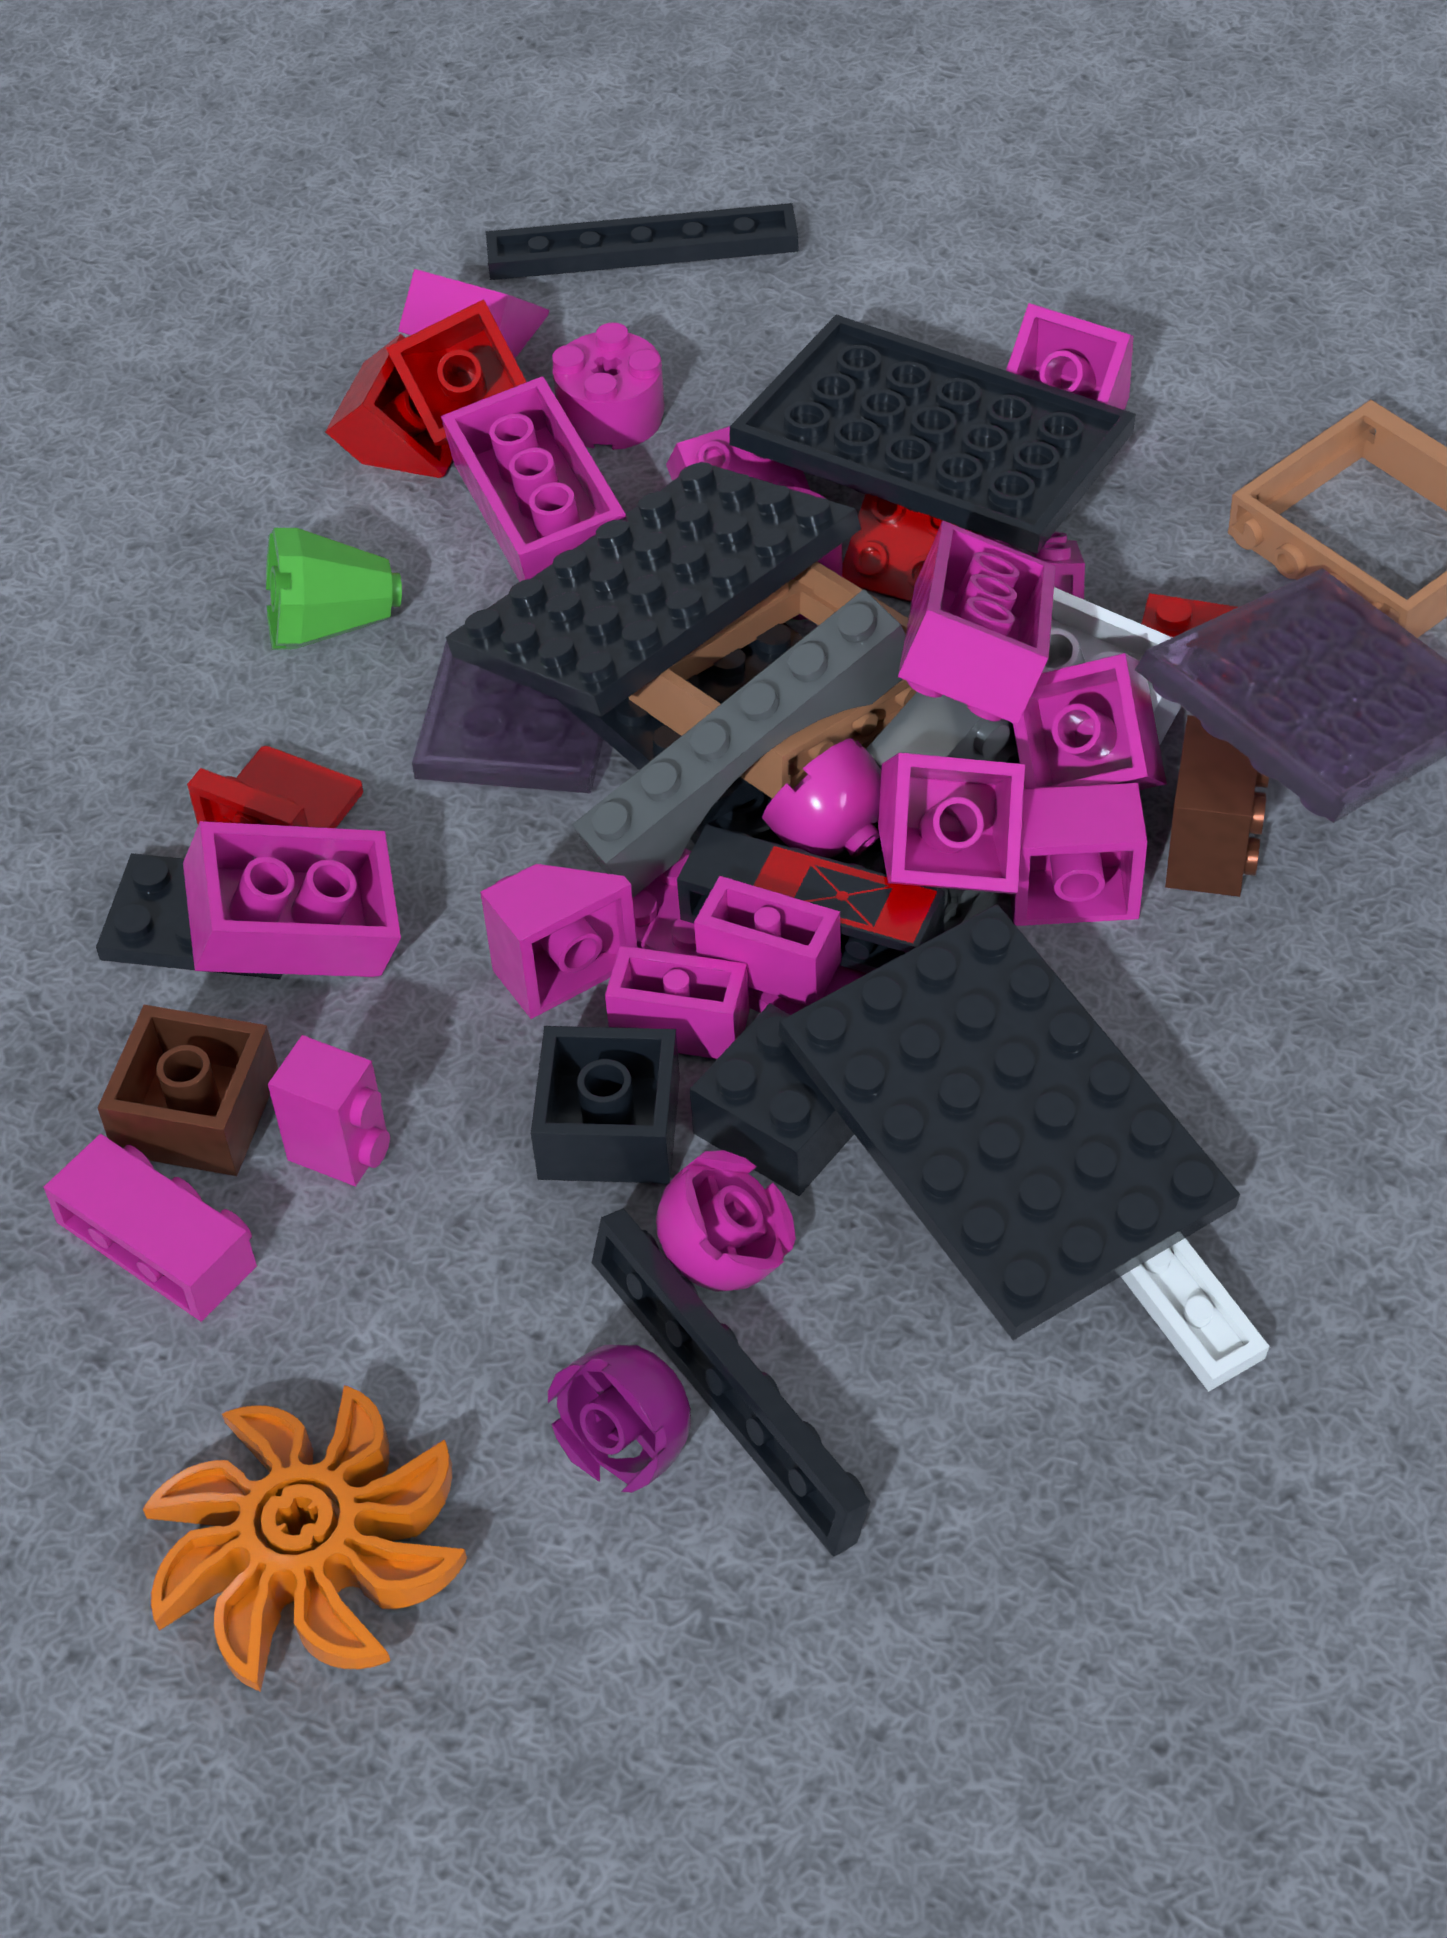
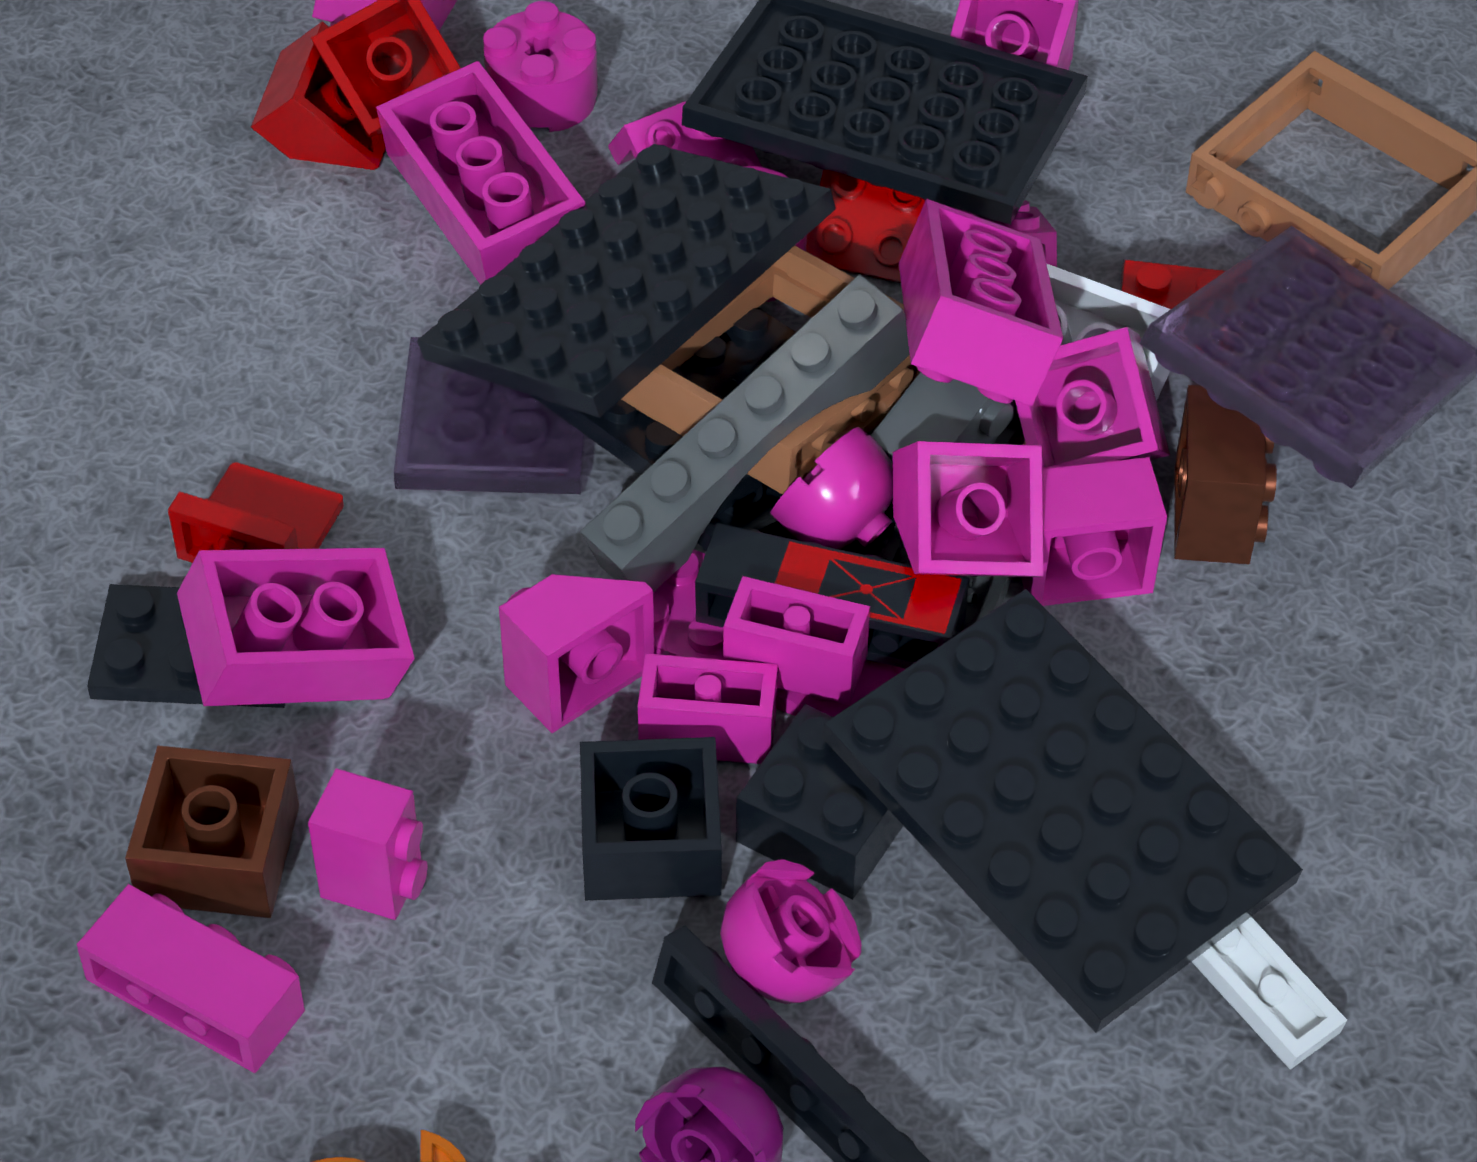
camera: 10 degrees left, 0 degrees up
(324, 588) = (273, 293): bright green cone -> none

